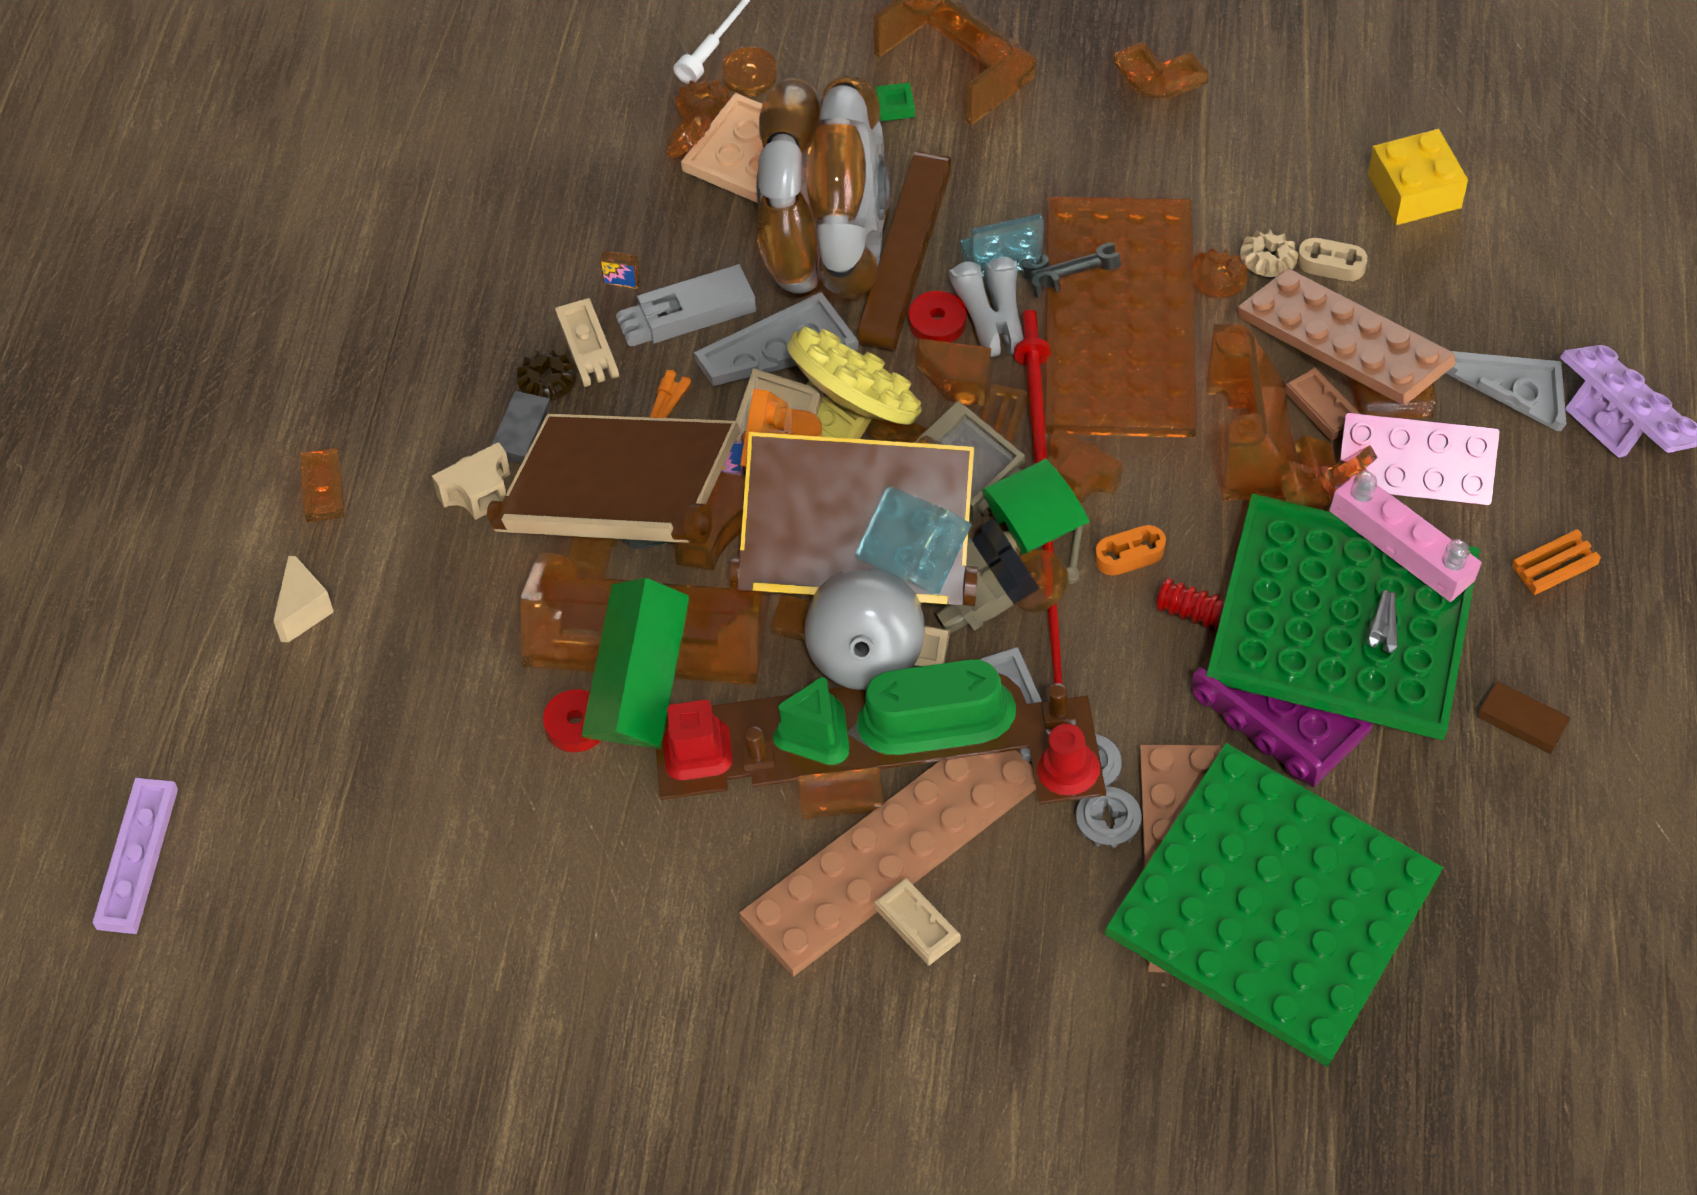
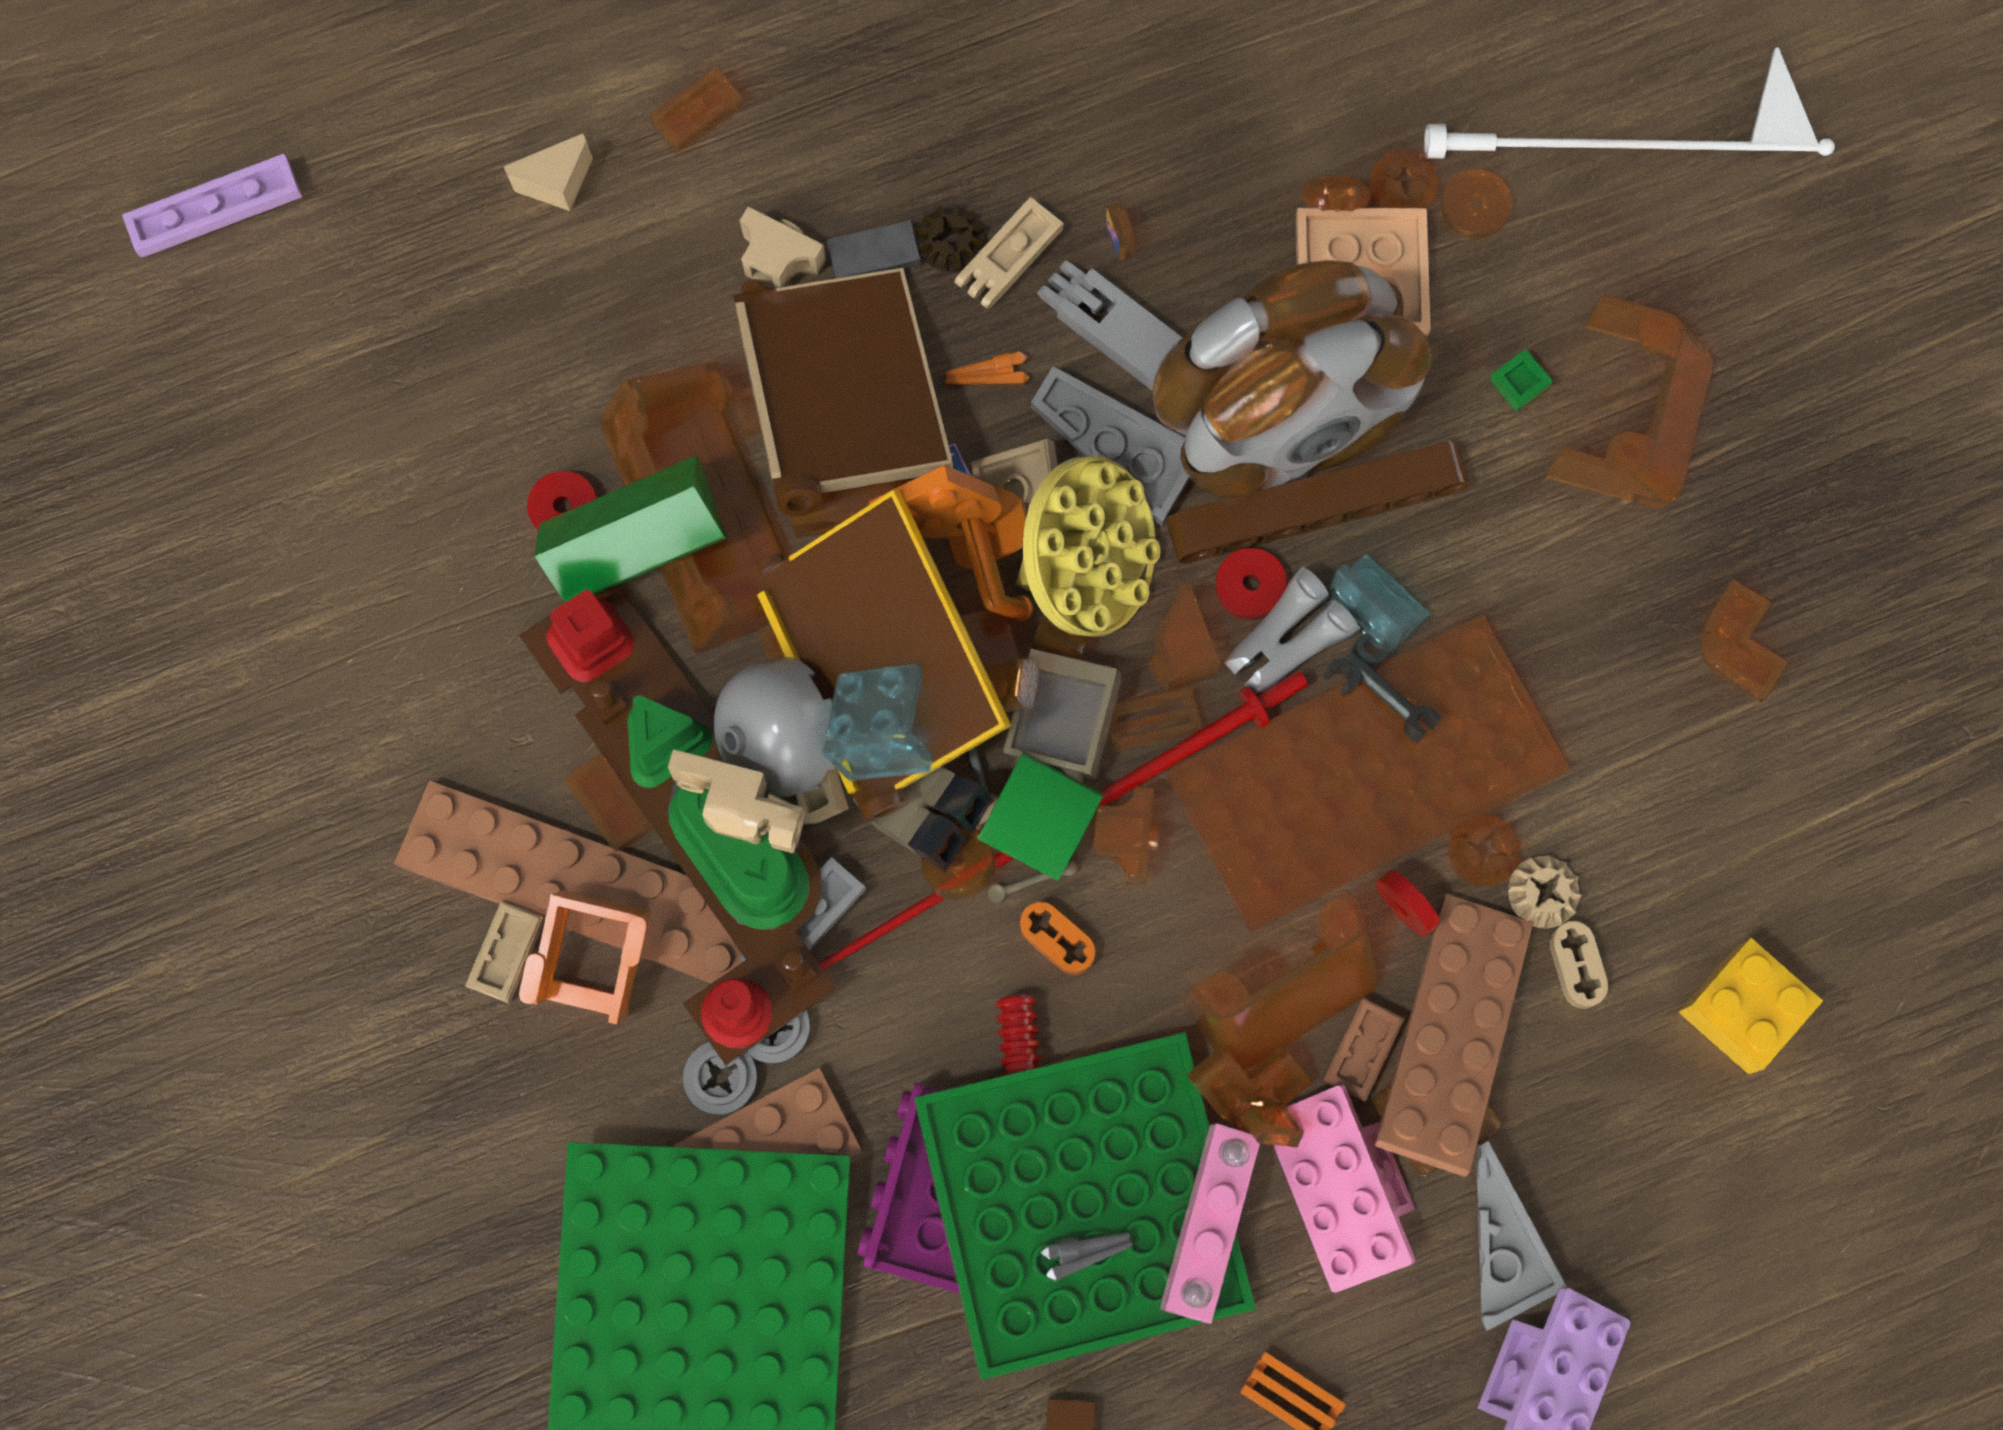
camera: 60 degrees right, 20 degrees up
(912, 661) = (737, 801): none -> tan plate
(976, 811) = (541, 967): none -> orange piece
(1235, 311) = (1407, 903): none -> red piece

